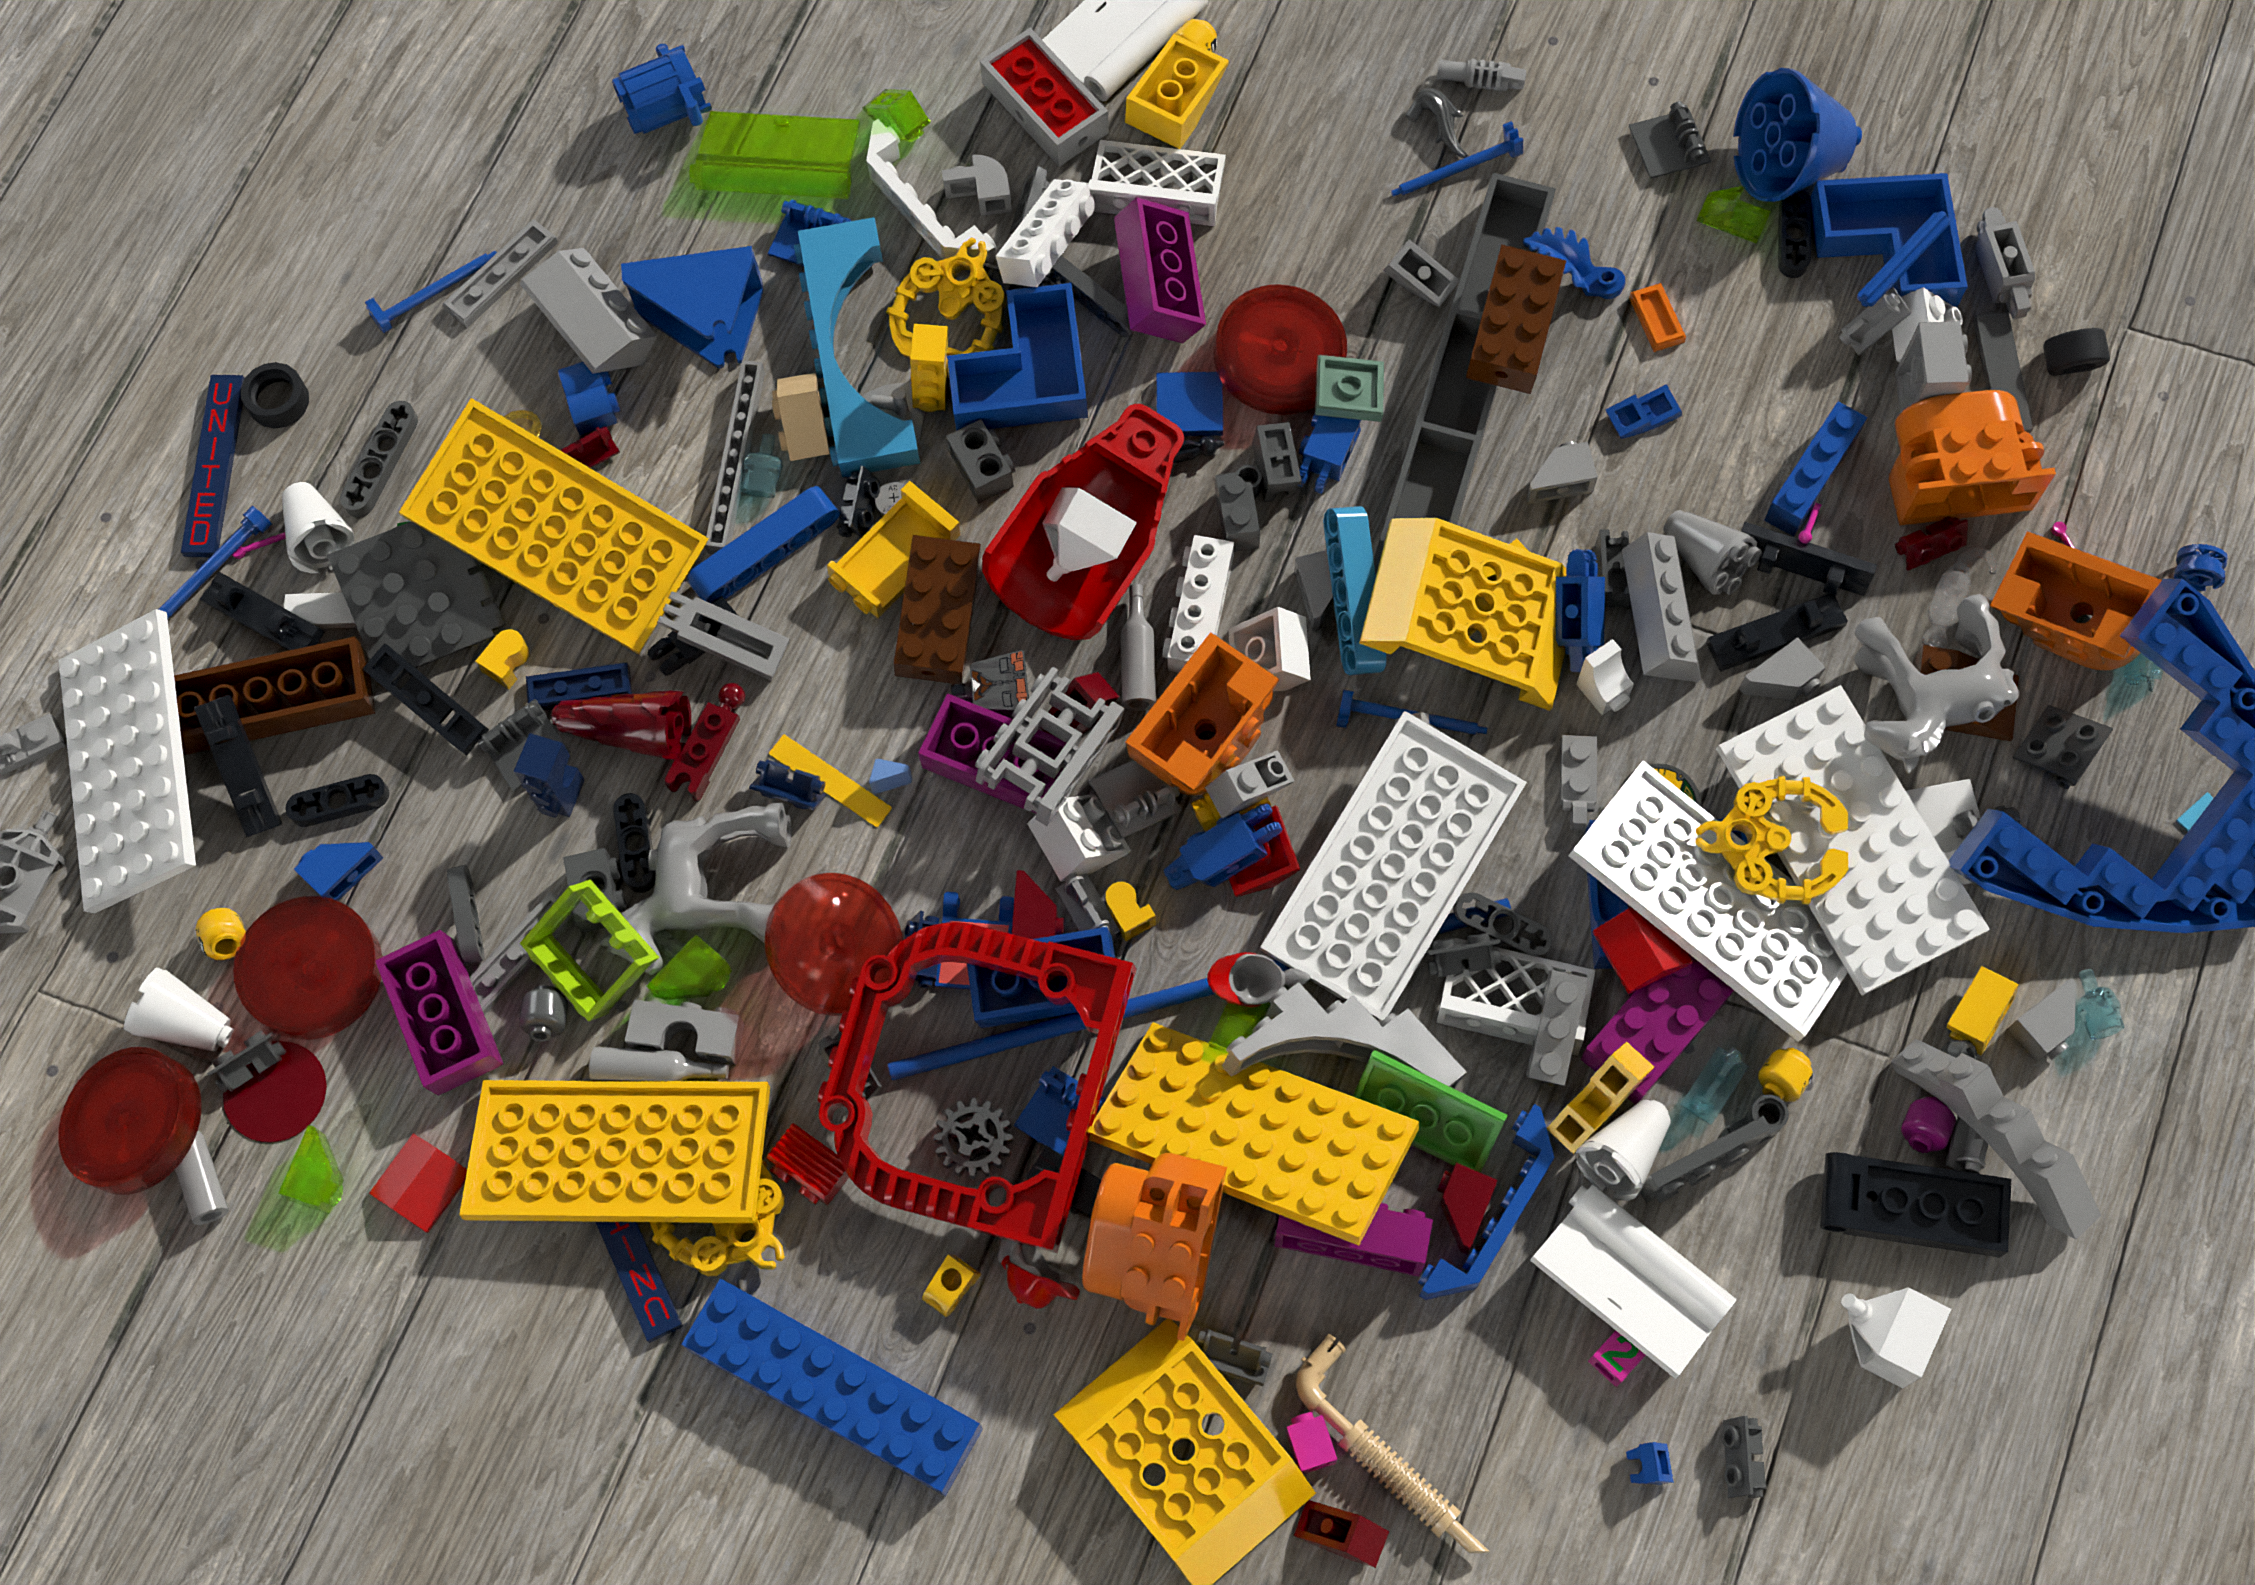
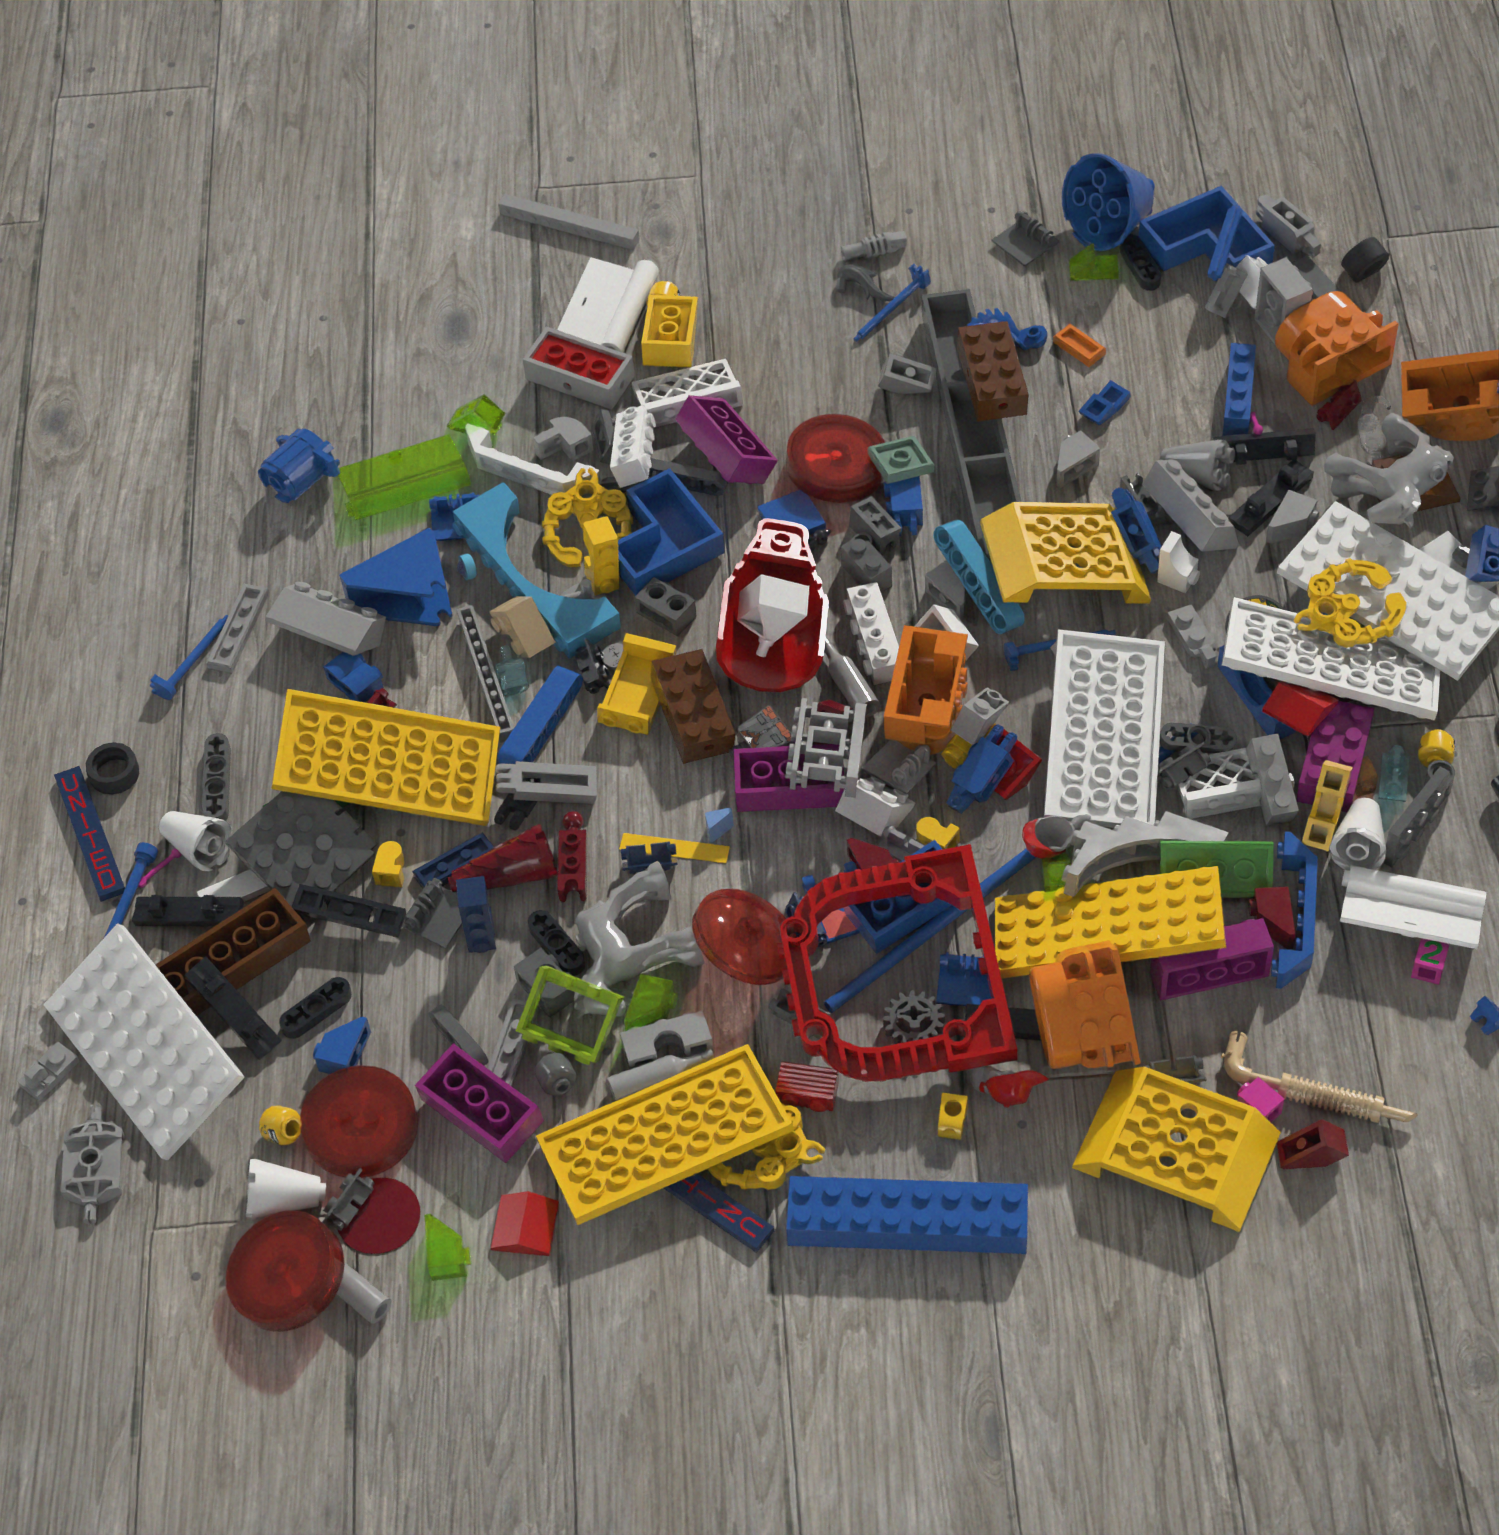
camera: 25 degrees left, 15 degrees down
(784, 307) = (466, 567): none -> medium azure tile
(1678, 1074) = (1367, 778): none -> clear orange slope

